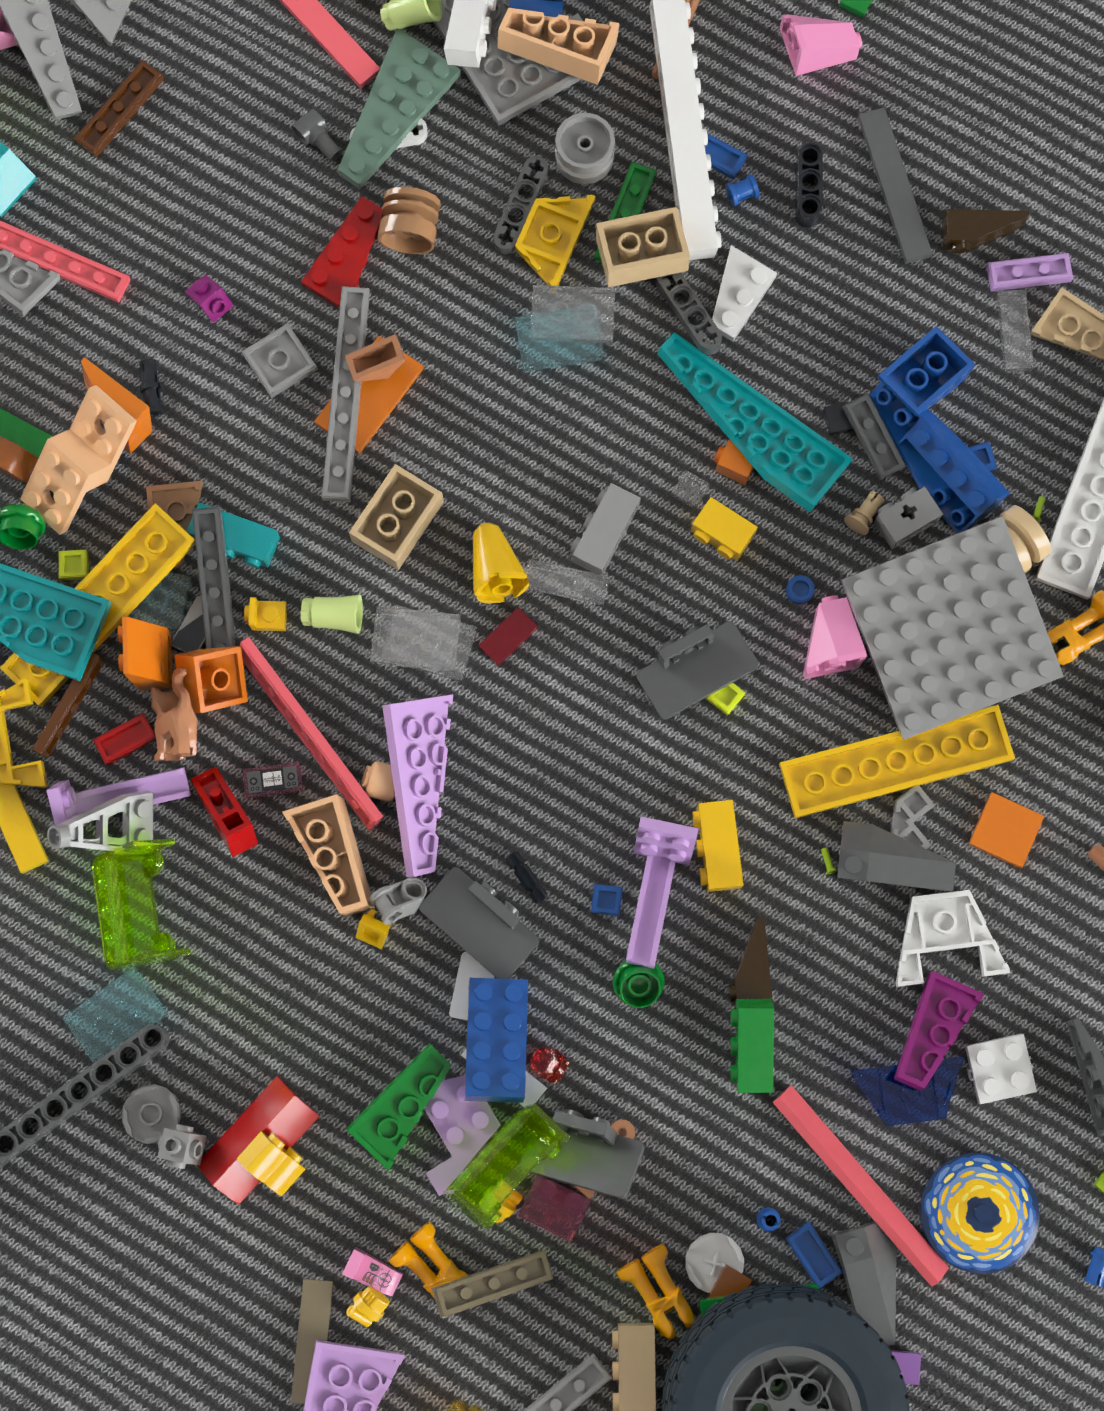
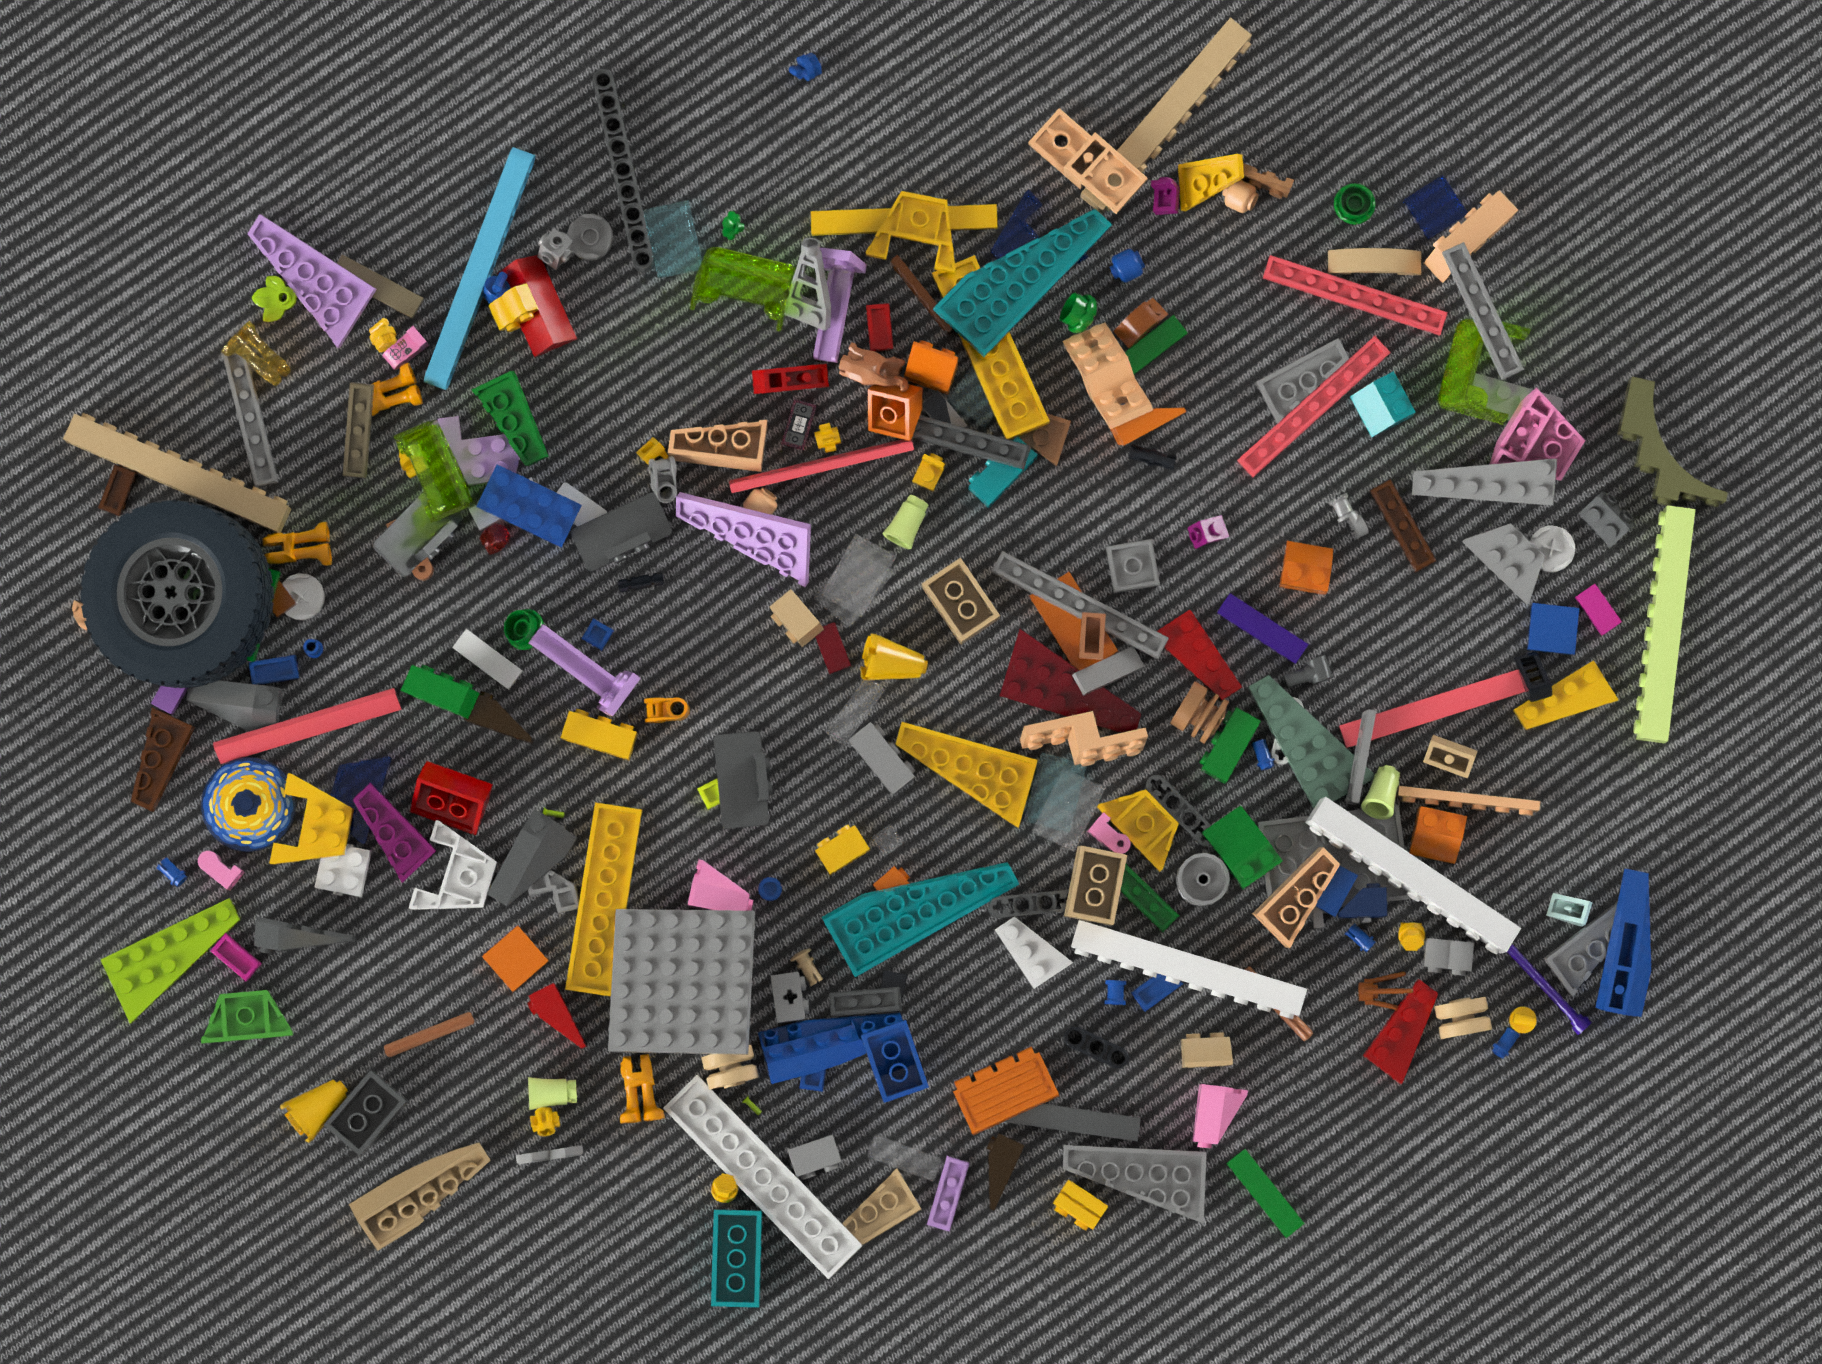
camera: 115 degrees right, 5 degrees up
(72, 954) = (732, 225): none -> green plant
(73, 564) = (1034, 342): neon yellow tile -> none
(130, 166) = (1345, 512): none -> light grey connector
(205, 181) = (1306, 568): none -> orange slope
(240, 1227) = (479, 268): none -> medium azure beam
(256, 1196) = (495, 287): none -> blue piece
(274, 739) = (827, 437): none -> yellow gear
(290, 202) = (1262, 628): none -> dark purple tile
(384, 43) = (1360, 757): none -> light grey tile
(411, 336) = (1108, 670): none -> light grey tile
(424, 146) = (1263, 755): none -> blue pin
(444, 386) = (1046, 682): none -> dark red wing
(445, 180) = (1229, 745): none -> green brick
(491, 322) = (1083, 739): none -> light nougat bracket
(493, 686) = (796, 618): none -> tan brick
(533, 119) = (1242, 847): none -> green slope
(554, 1208) = (390, 496): clear pink brick -> none
(572, 419) = (985, 773): none -> yellow wing
(582, 263) = (1108, 836): none -> bright pink leg
(658, 787) = (663, 710): none -> light orange piece
(690, 1012) = (487, 659): none -> white tile
(762, 72) = (1206, 1051): none -> tan slope
(864, 981) = (450, 797): none -> red slope
(899, 256) = (1006, 1092): none -> orange hinge
(912, 79) = (1157, 1176): none -> light grey wing
(968, 1110) = (323, 827): none -> yellow wing
(972, 1343) = (162, 751): none -> reddish brown wing
(977, 135) = (1080, 1205): none -> yellow brick
(1046, 758) = (553, 1010): none -> red slope
(1061, 418) = (815, 1156): none -> light grey brick
(1071, 1212) = (212, 865): none -> bright pink leg

